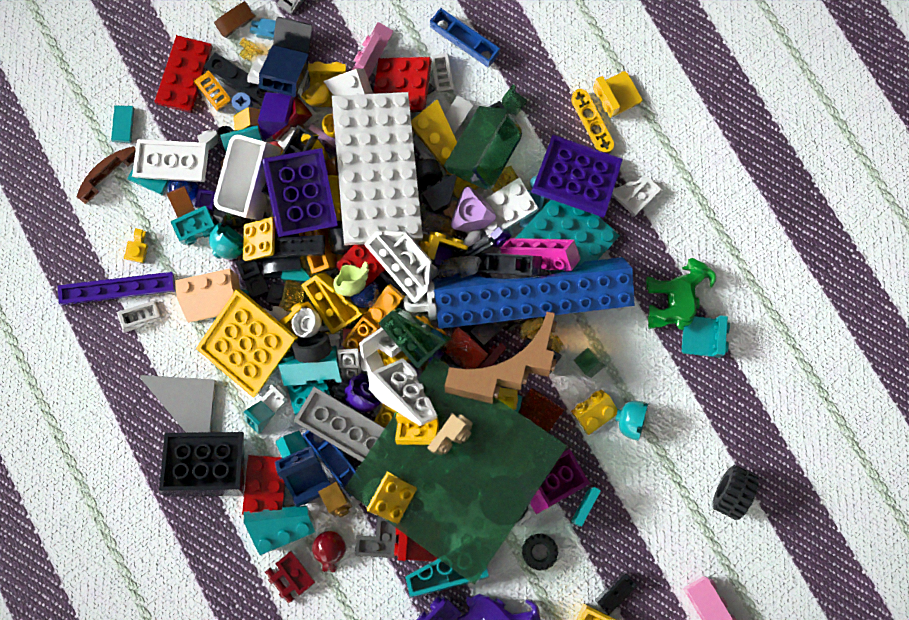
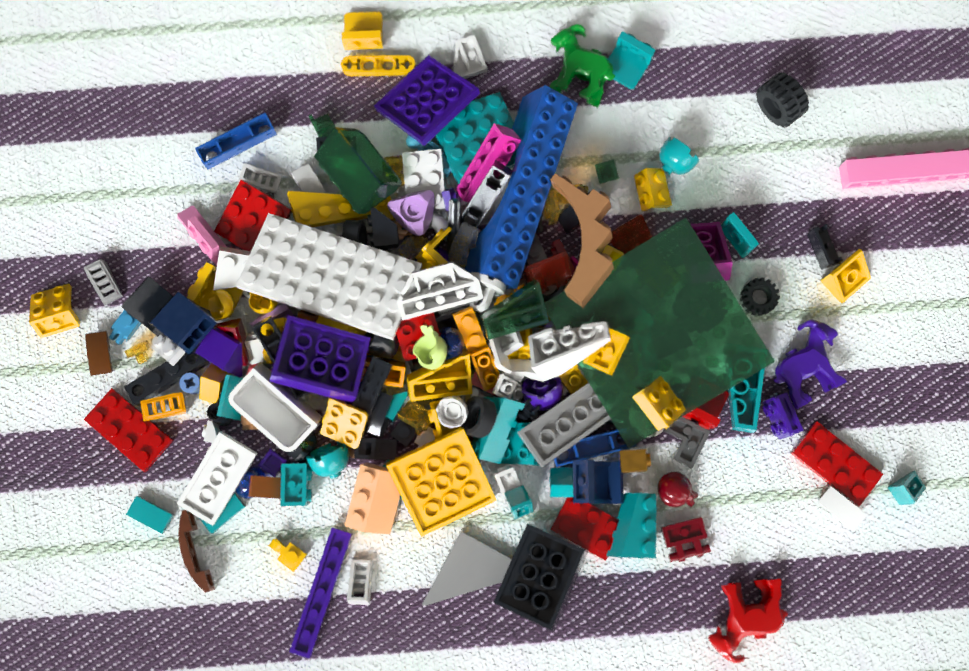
camera: 65 degrees left, 0 degrees up
(455, 429) = (627, 310): tan plate -> none

